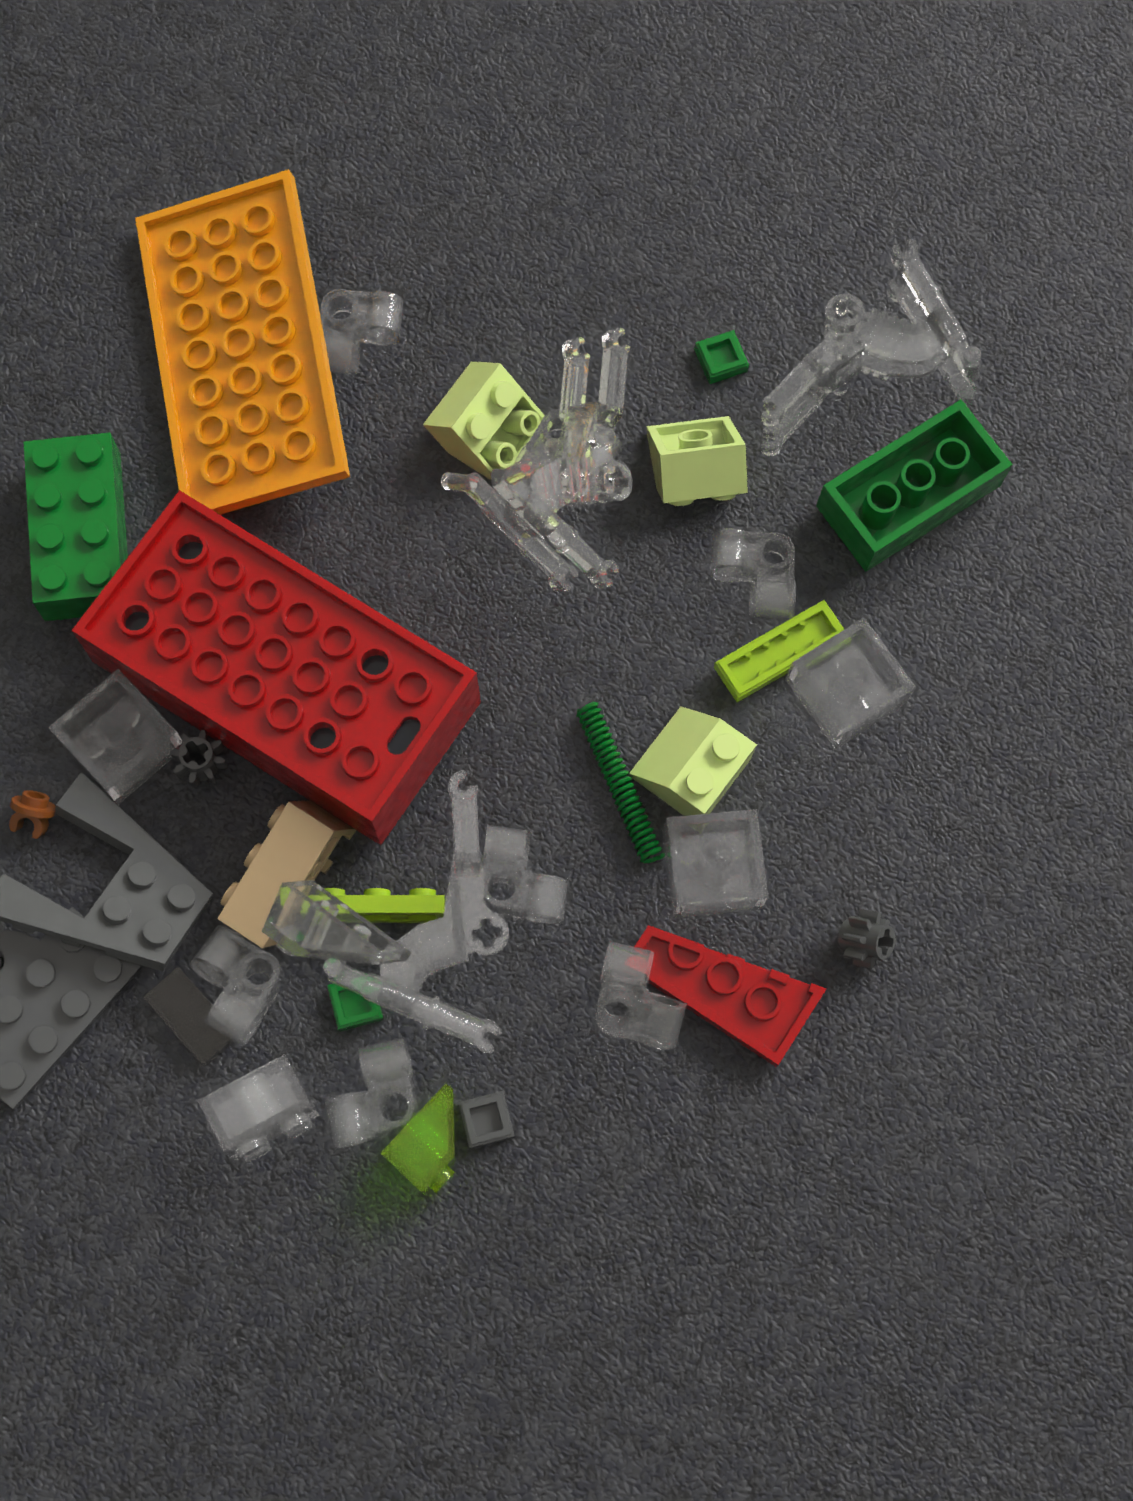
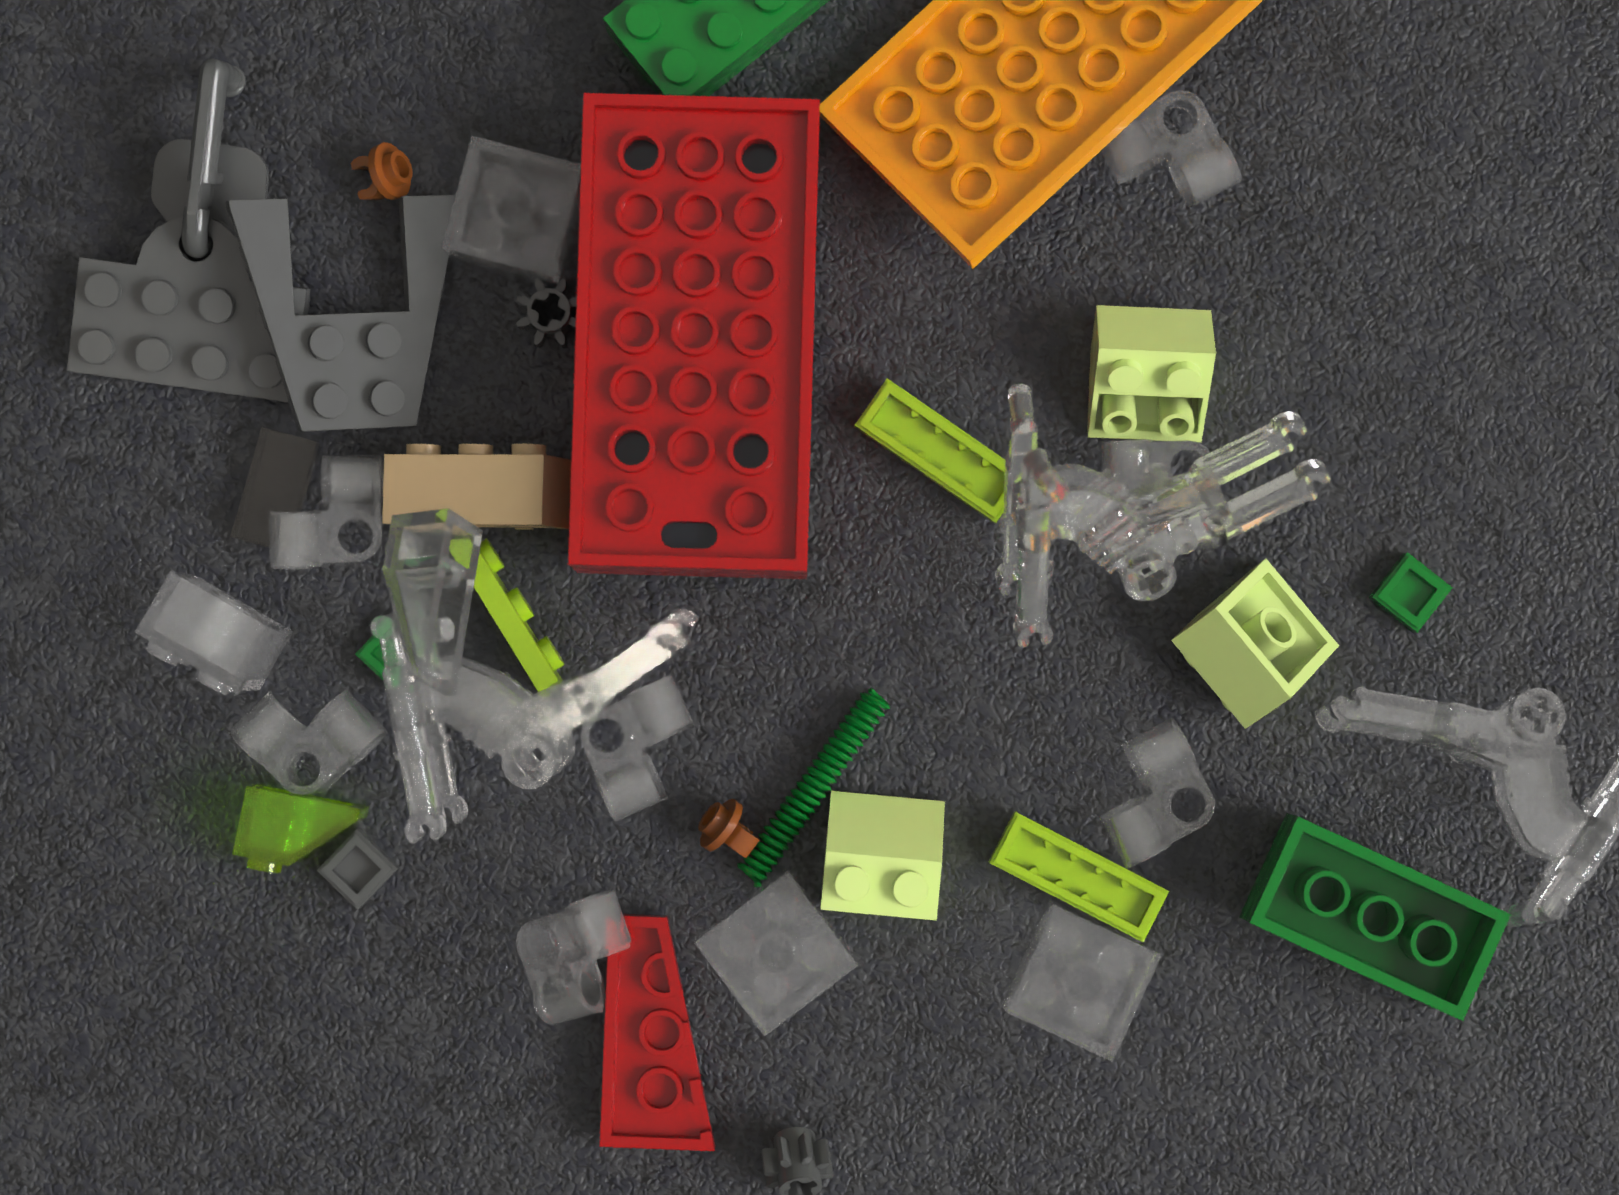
camera: 65 degrees right, 15 degrees up
(452, 573) = (936, 449): none -> lime plate
(611, 852) = (722, 825): none -> dark orange plate

